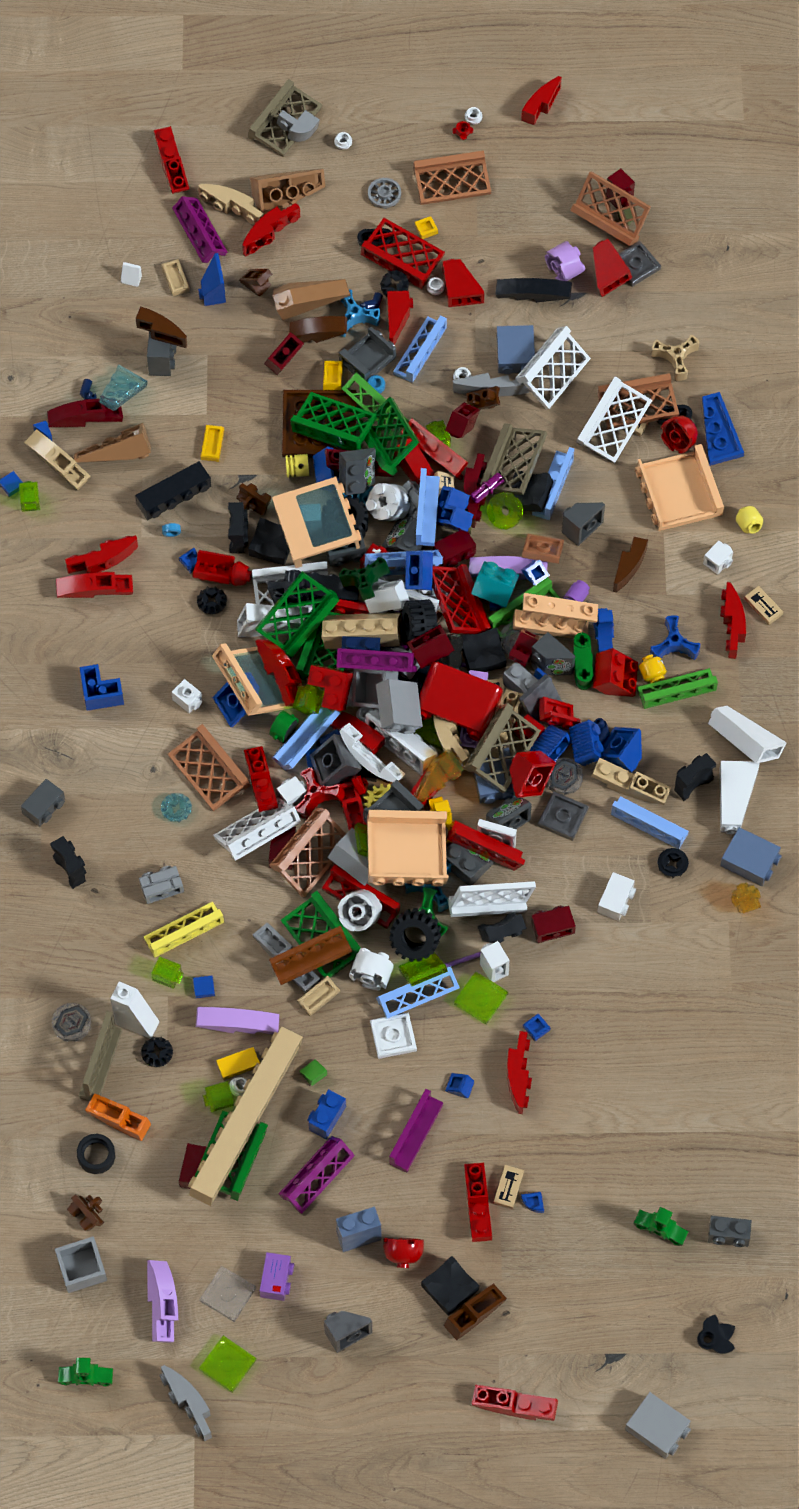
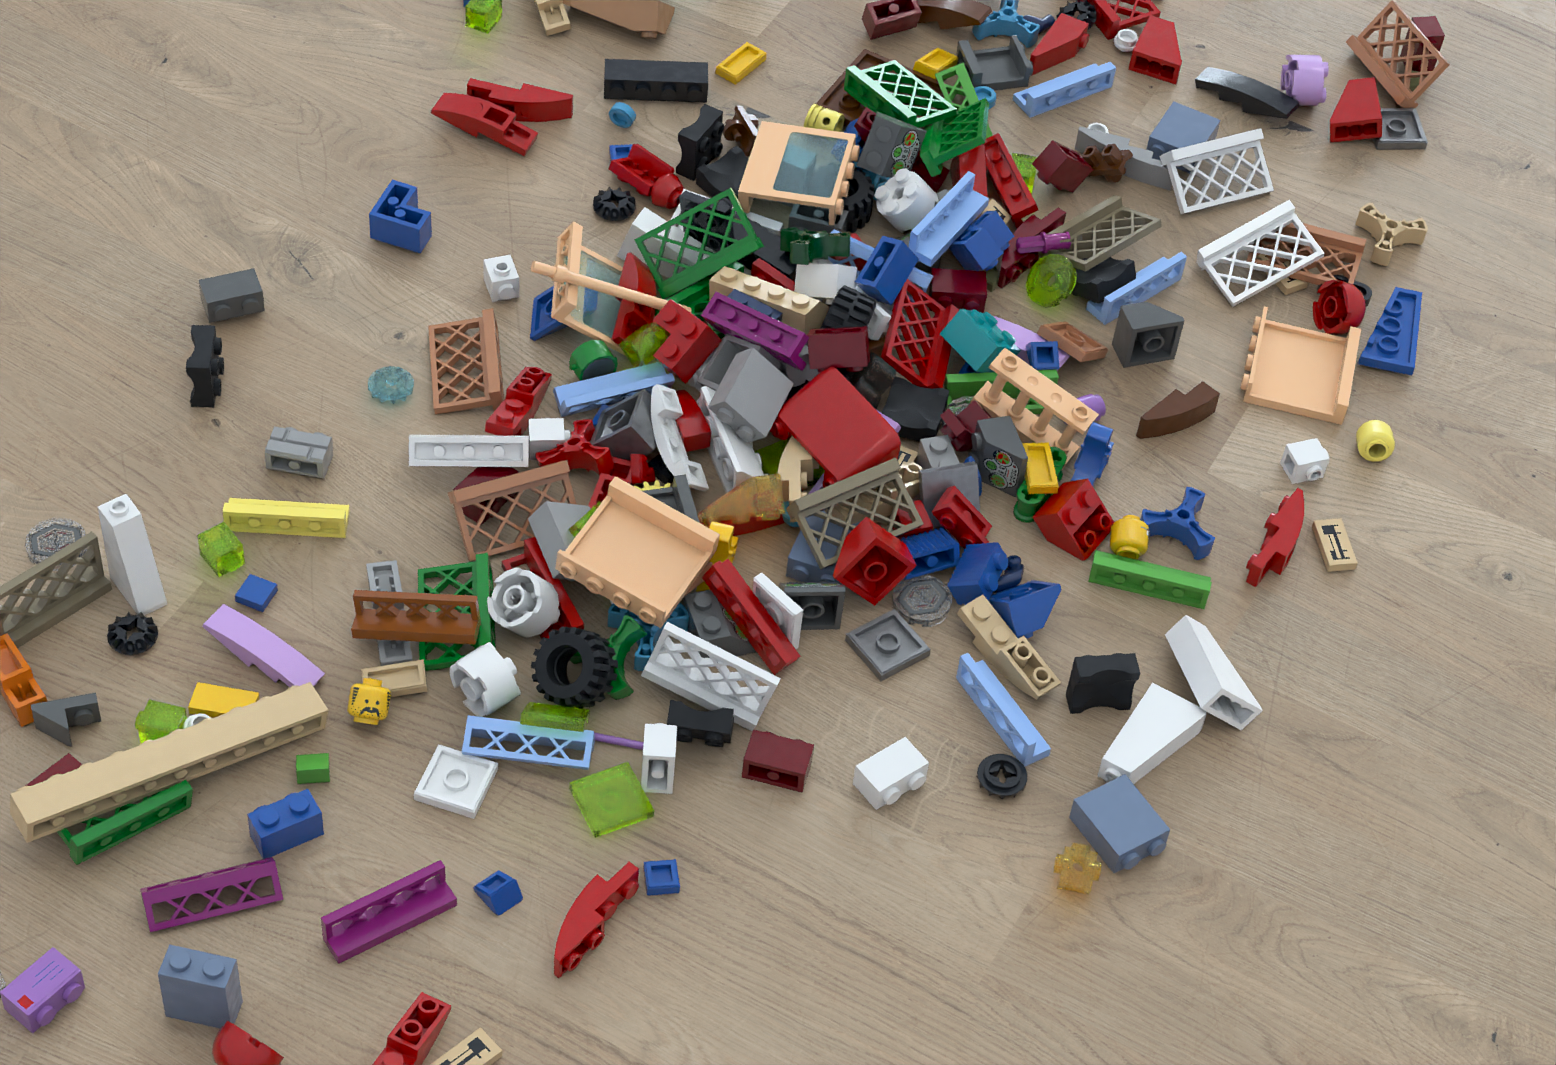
camera: 25 degrees right, 15 degrees down
(160, 1125) = (58, 715): none -> dark grey slope
(244, 688) = (561, 274): none -> light nougat bar
(318, 1018) = (369, 701): none -> yellow head
(583, 657) = (1040, 469): none -> yellow tile

